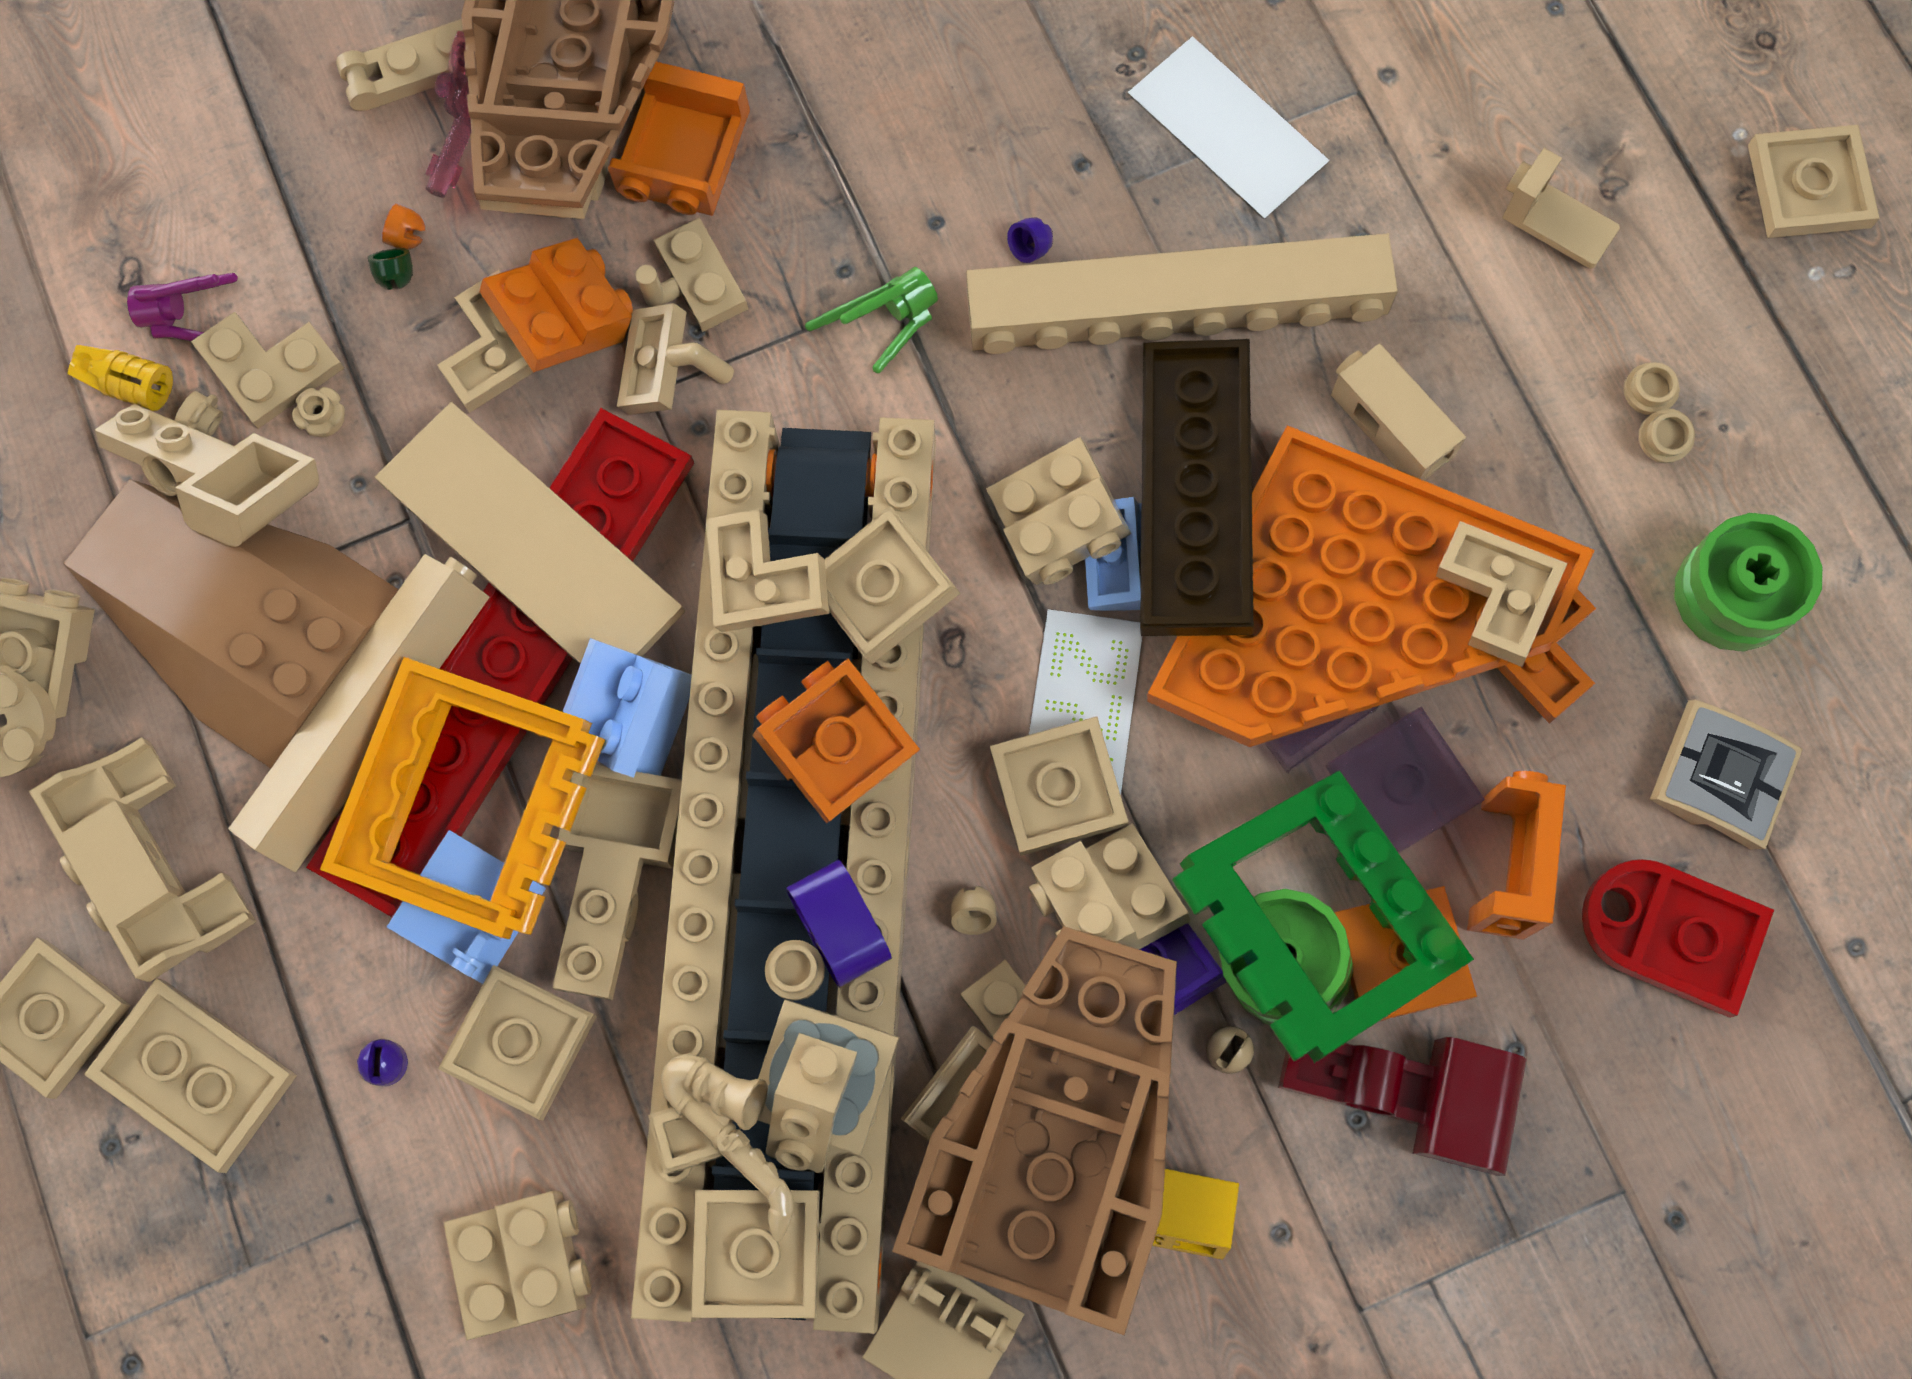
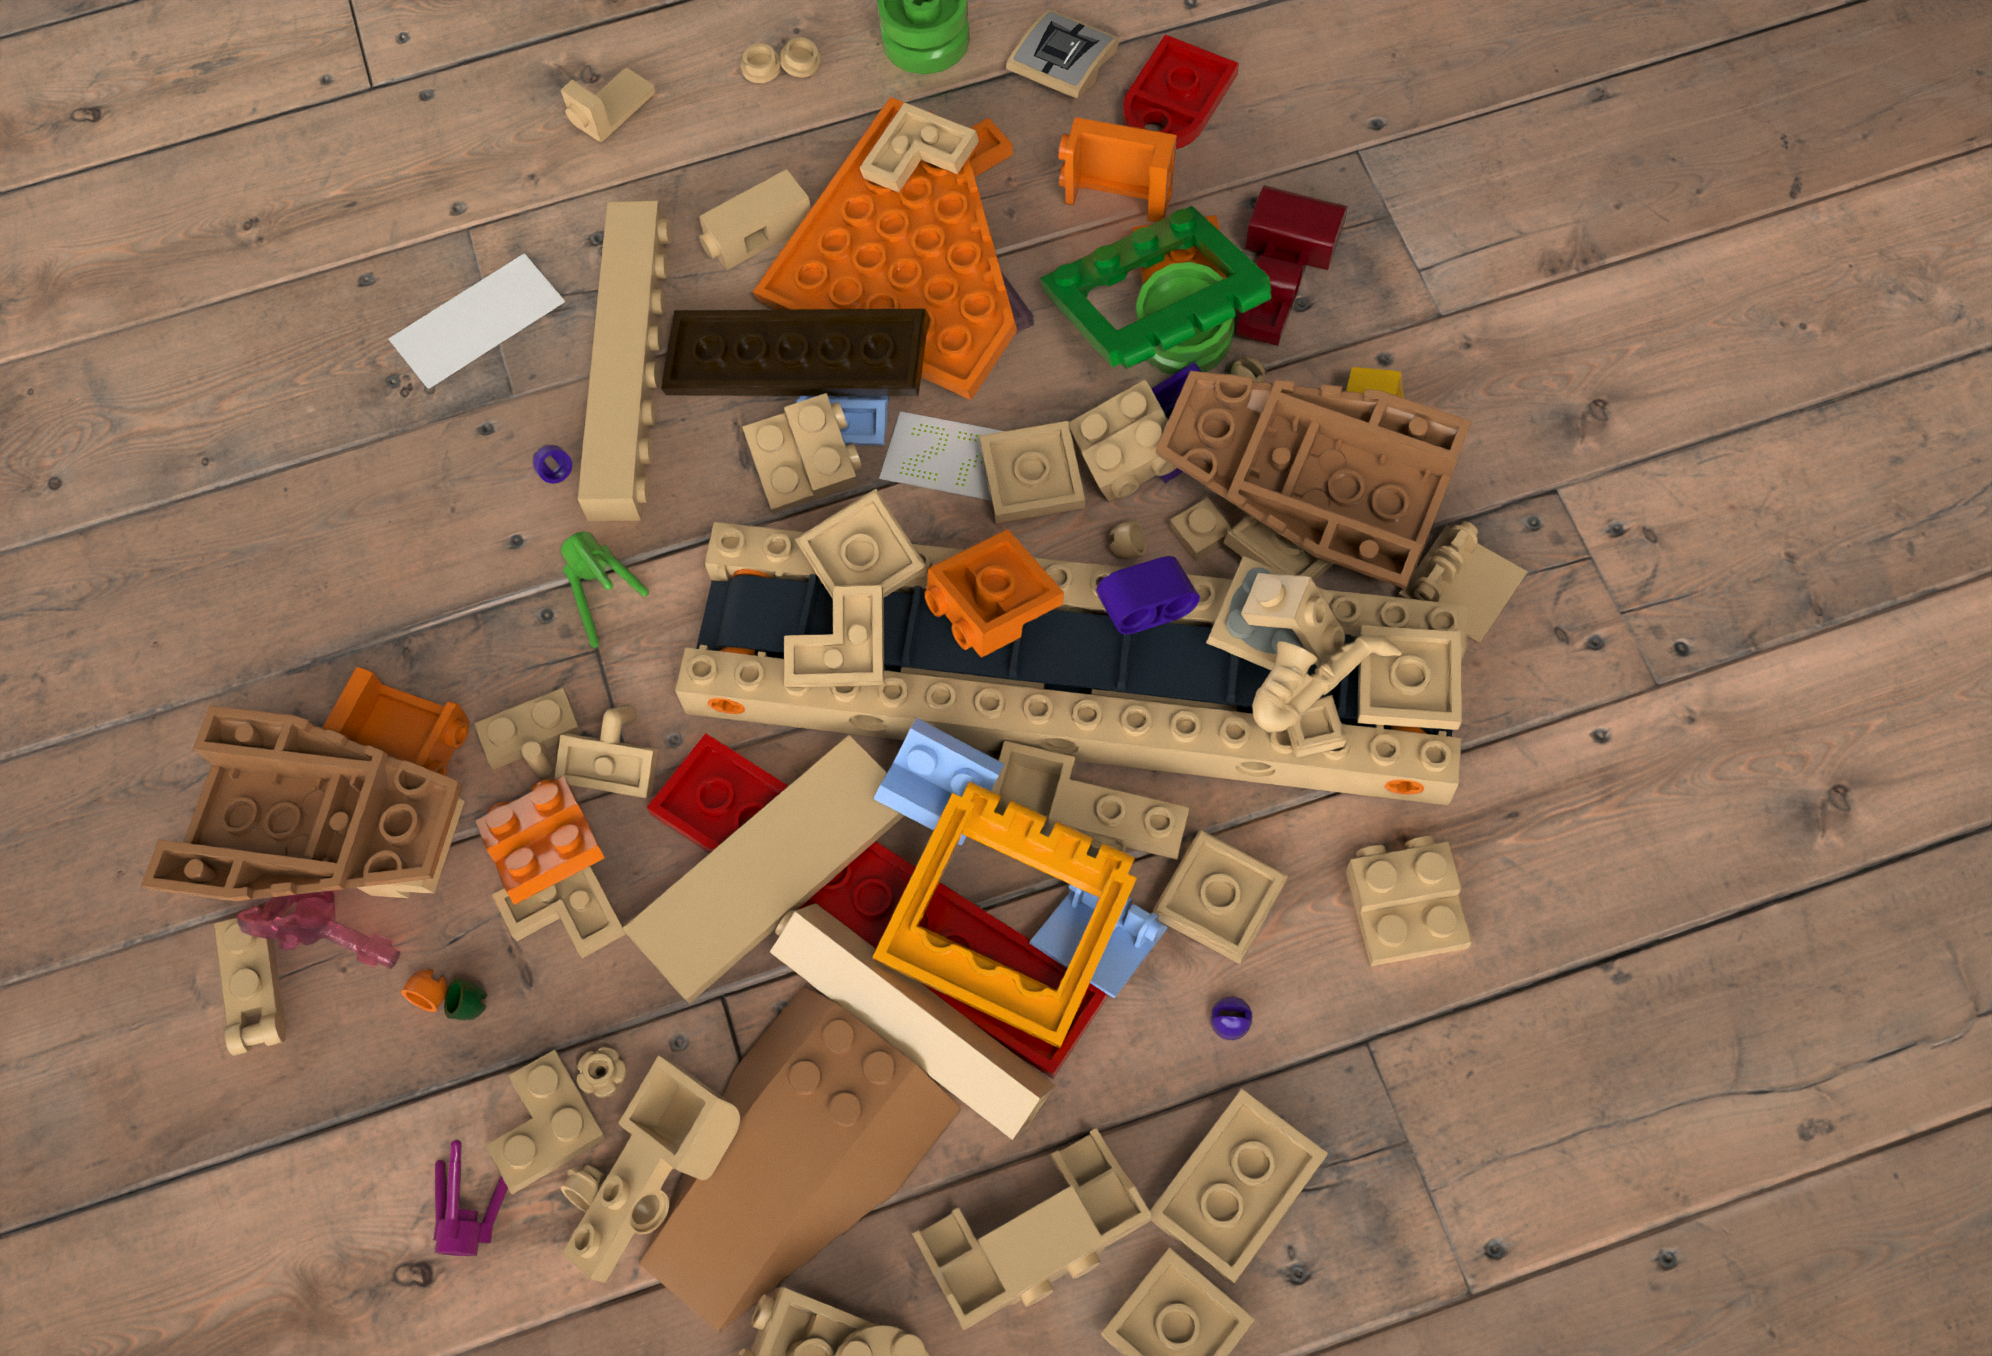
camera: 85 degrees left, 10 degrees down
(111, 375) = (521, 1286): yellow hinge -> none
(794, 970) = (1182, 634): tan plate -> none
(1408, 779) = (1046, 239): clear purple plate -> none

